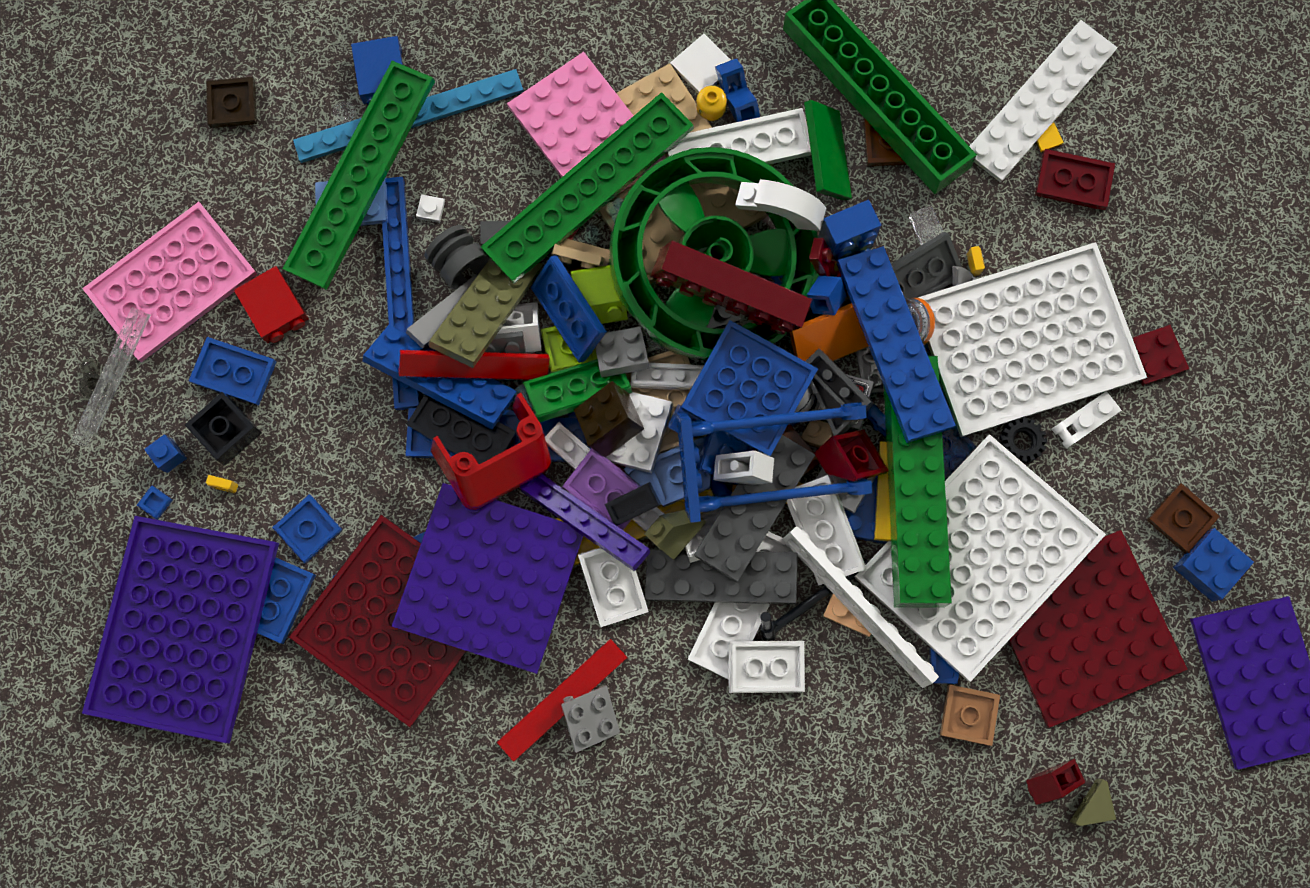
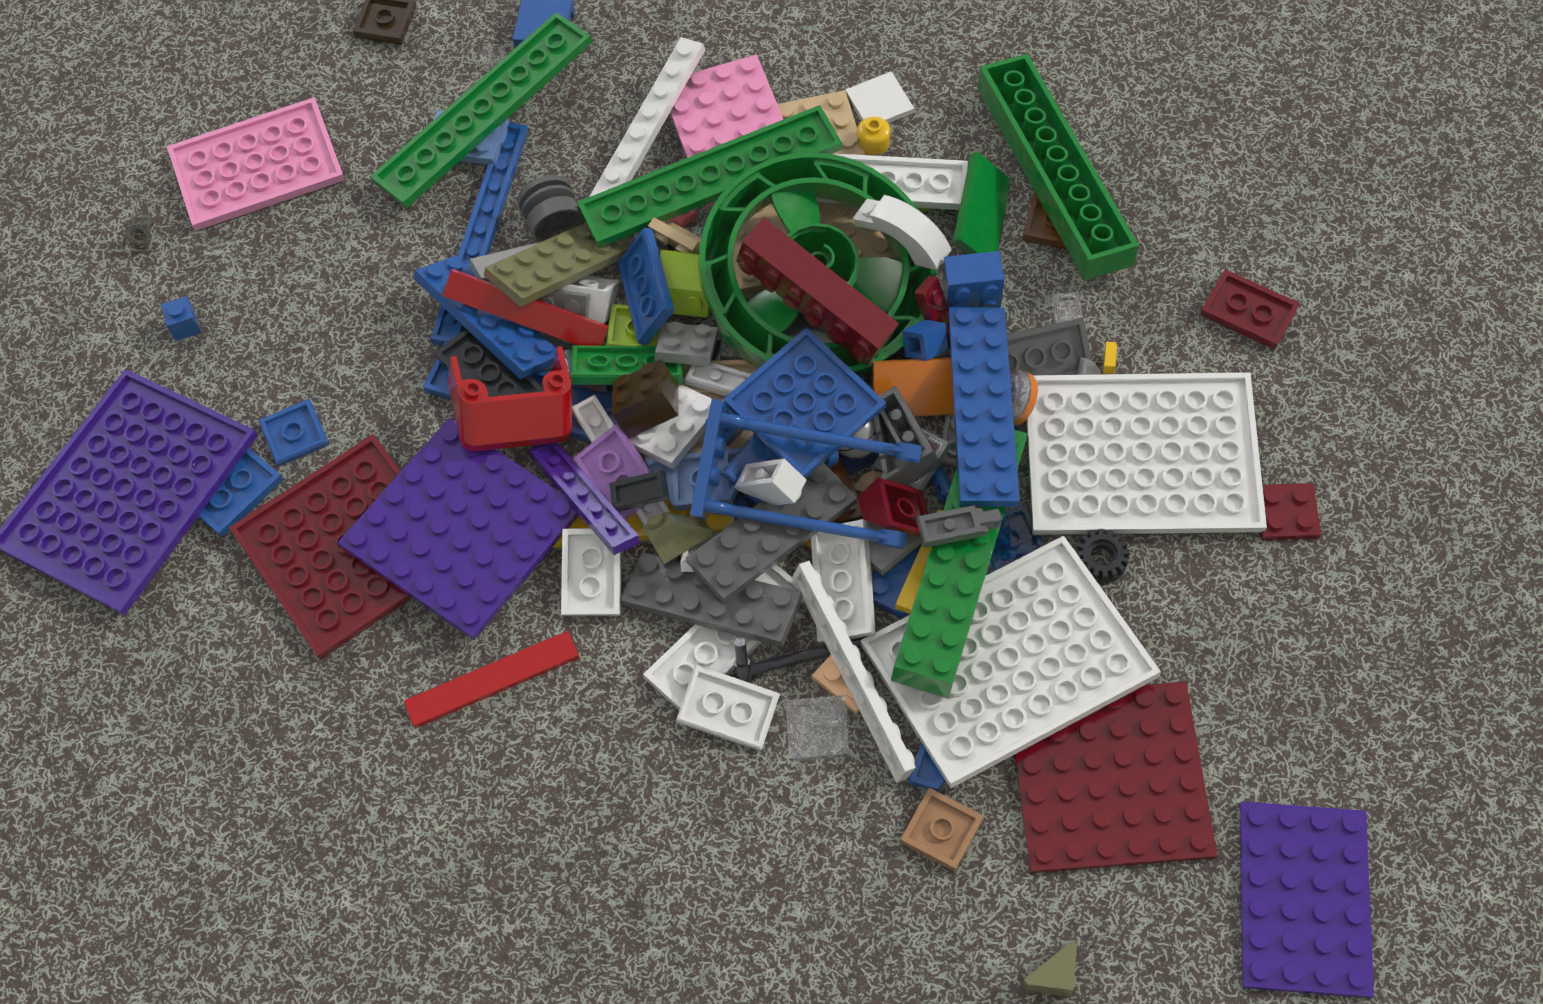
camera: 20 degrees right, 15 degrees down
(110, 378) = (158, 232): clear tile -> none
(154, 502) = (151, 364): blue tile -> none
(221, 484) = (224, 363): yellow tile -> none
(223, 428) = (248, 309): black brick -> none
(232, 371) = (281, 261): blue plate -> none
(271, 305) = (346, 210): red brick -> none
(430, 208) = (544, 163): white plate -> none
(433, 109) = (574, 74): dark azure plate -> none
(512, 145) = (651, 115): none -> white plate
(590, 718) = (513, 703): light grey hinge -> none
(739, 98) = (905, 129): blue brick -> none
(844, 661) = (817, 728): none -> clear plate
(911, 464) = (956, 525): none -> dark grey hinge
(1041, 100) = (1237, 224): white plate -> none
(1050, 138) = (1234, 260): yellow tile -> none
(1055, 782) = (1017, 930): dark red slope -> none
(1087, 419) = (1184, 556): white plate -> none
(1183, 518) = (1263, 690): reddish brown plate -> none
(1213, 565) = (1282, 747): blue brick -> none

